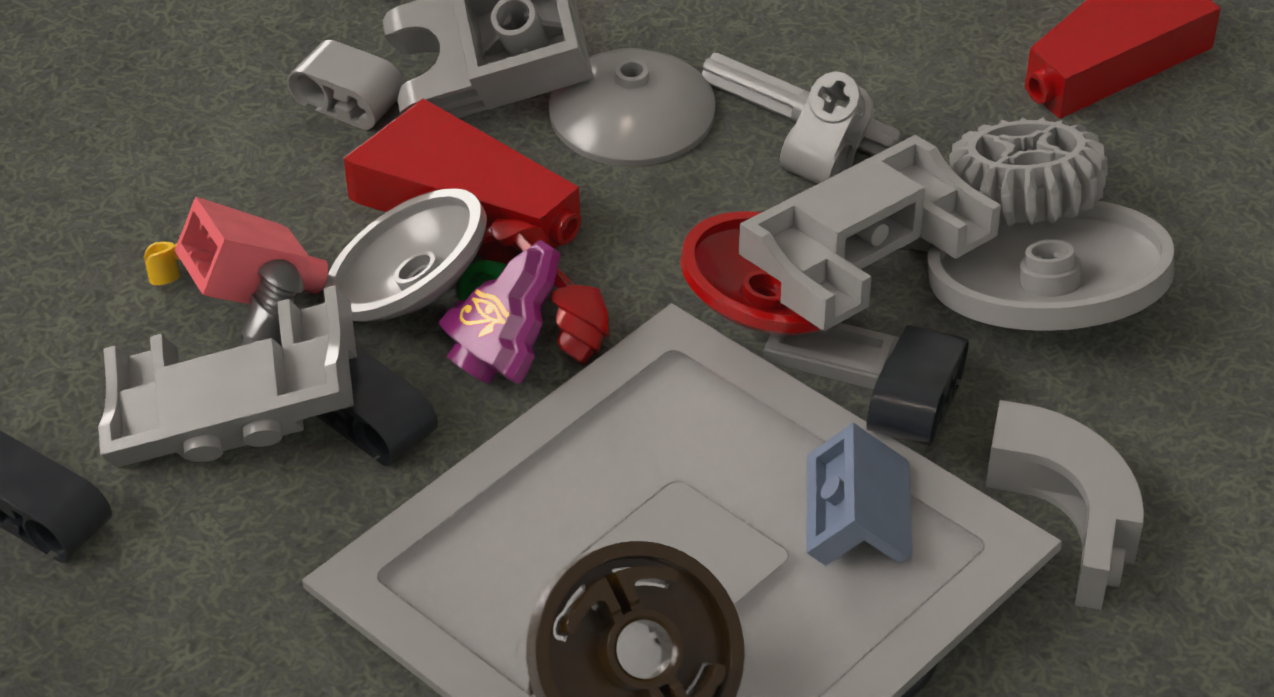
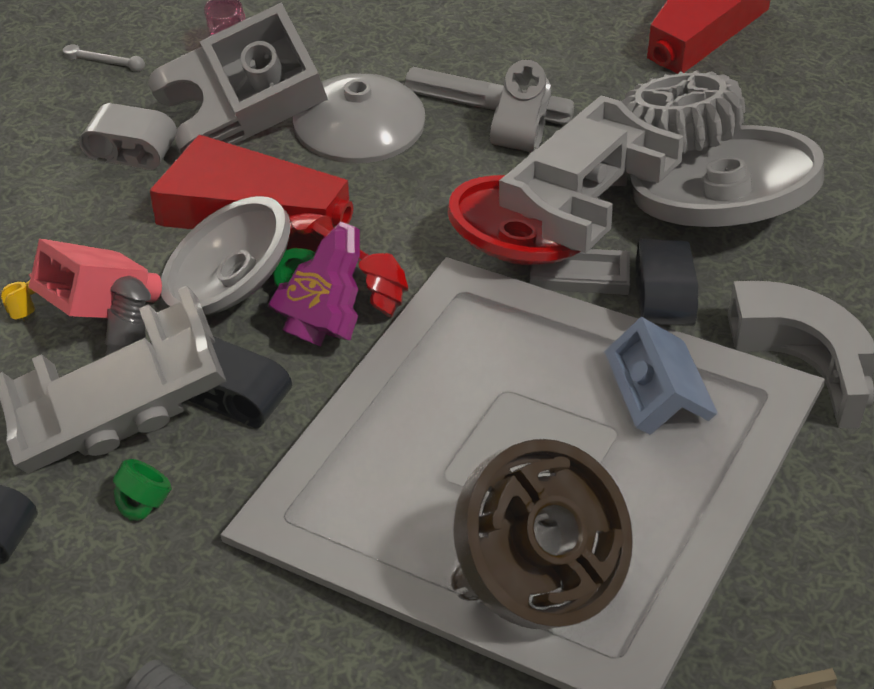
camera: 15 degrees left, 0 degrees up
(233, 505) = (141, 484): none -> green tile

